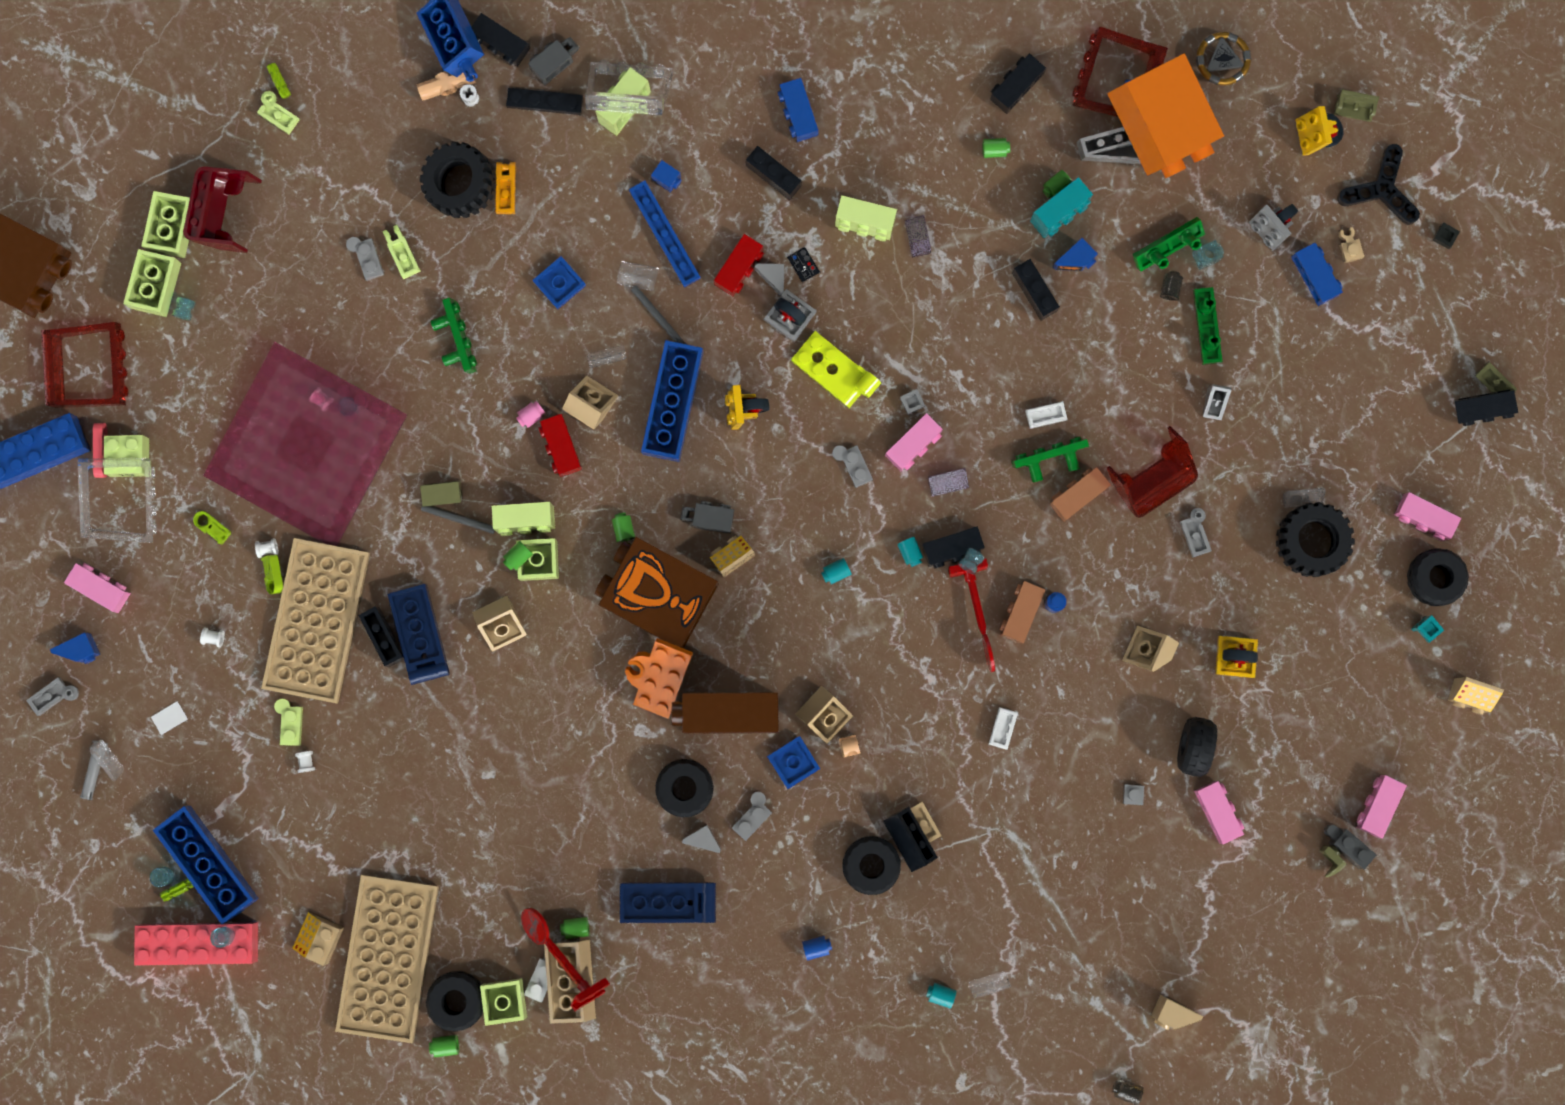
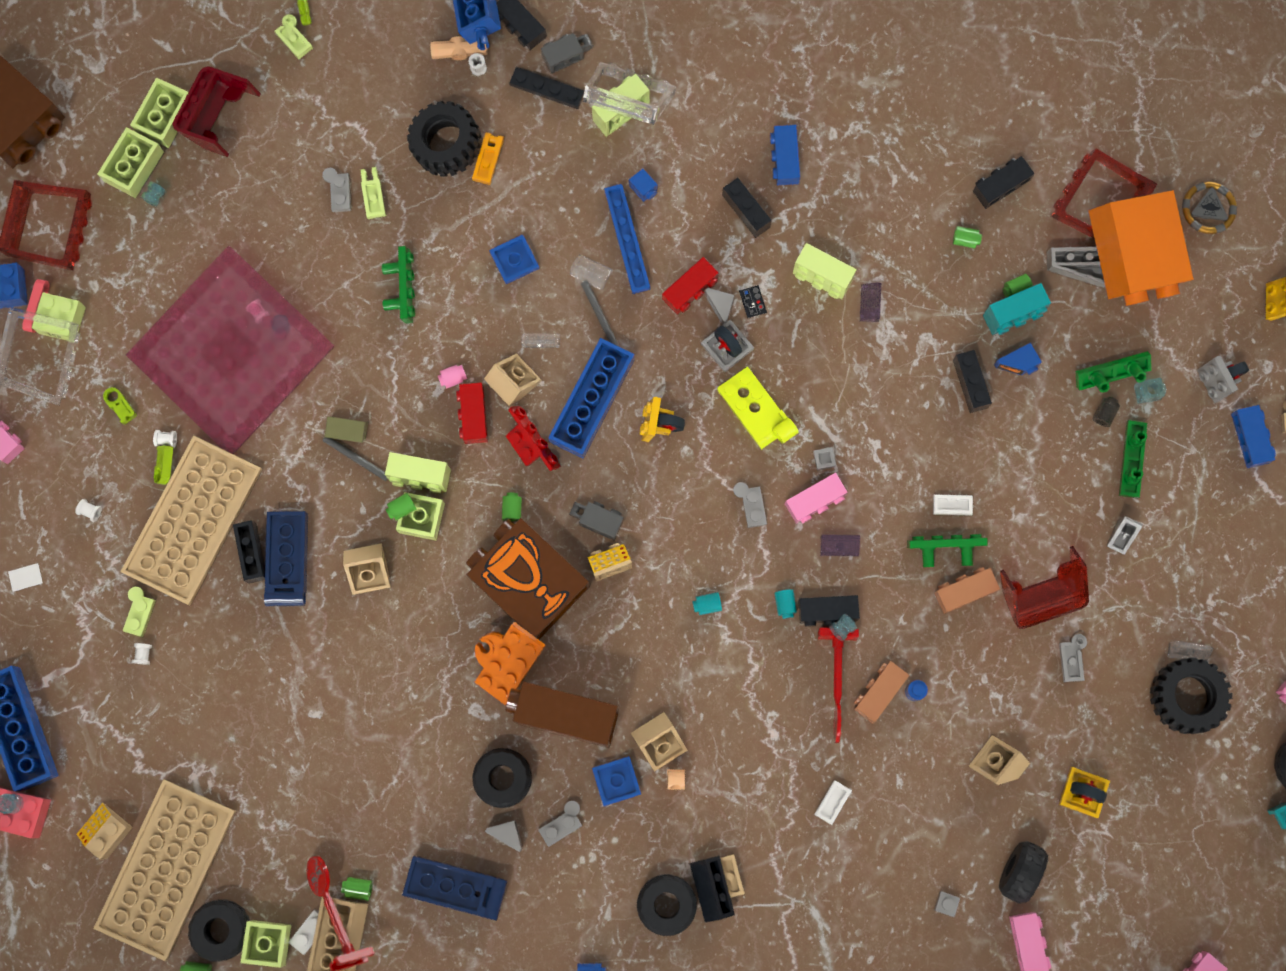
camera: 15 degrees right, 5 degrees down
(623, 460) = (528, 442): none -> red bracket

